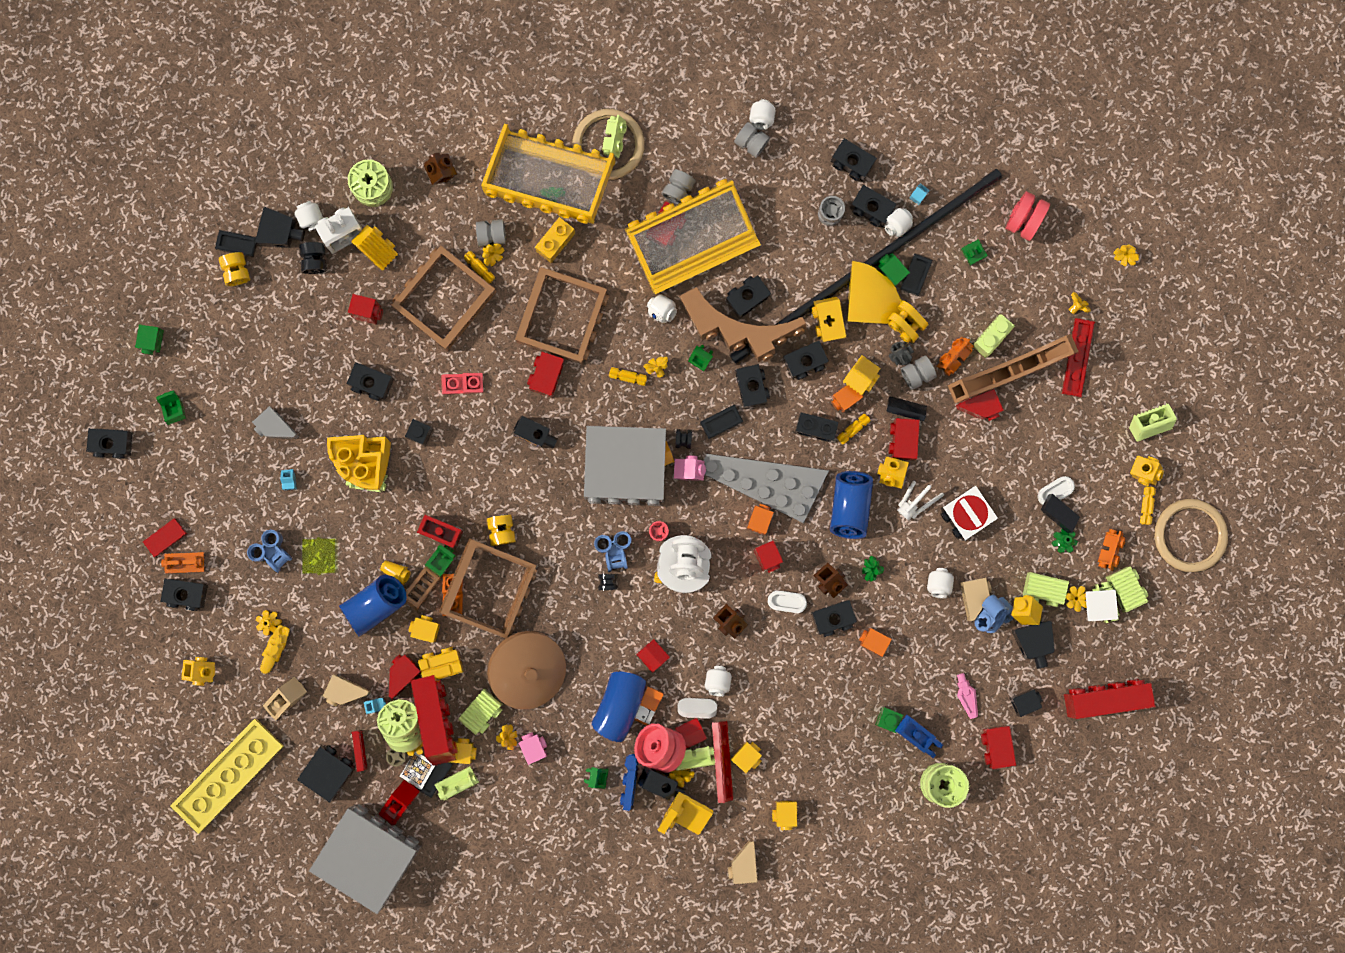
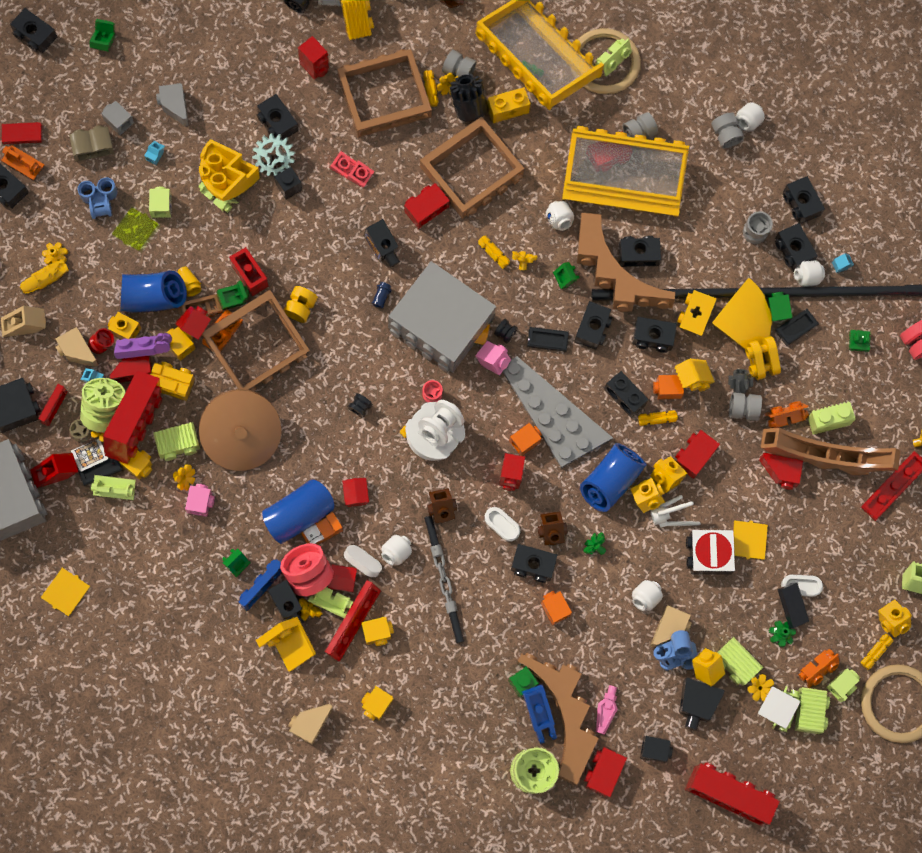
camera: 30 degrees right, 10 degrees down
(230, 508) = (91, 143): none -> dark tan brick
(235, 471) = (117, 117): none -> light grey brick
(324, 520) = (160, 202): none -> yellowish green brick
(360, 667) = (101, 341): none -> red wheel
(370, 647) = (123, 326): none -> yellow brick
(381, 419) = (264, 152): none -> light aqua gear
(399, 655) = (142, 346): none -> medium lavender hinge
(427, 608) = (194, 321): none -> red slope
(477, 892) = (65, 592): none -> yellow piece
(519, 257) = (469, 97): none -> black gear
(561, 476) = (383, 290): none -> dark blue pin
(614, 551) = (382, 384): medium blue piece -> none
(791, 696) = (437, 551): none -> piece
(889, 501) = (648, 495): none -> yellow brick
(906, 408) = (714, 429): black tile -> none
(963, 738) = (577, 742): none -> medium nougat arch
(991, 480) = (750, 539): none -> yellow piece
(1139, 550) = (844, 684): none -> yellowish green brick

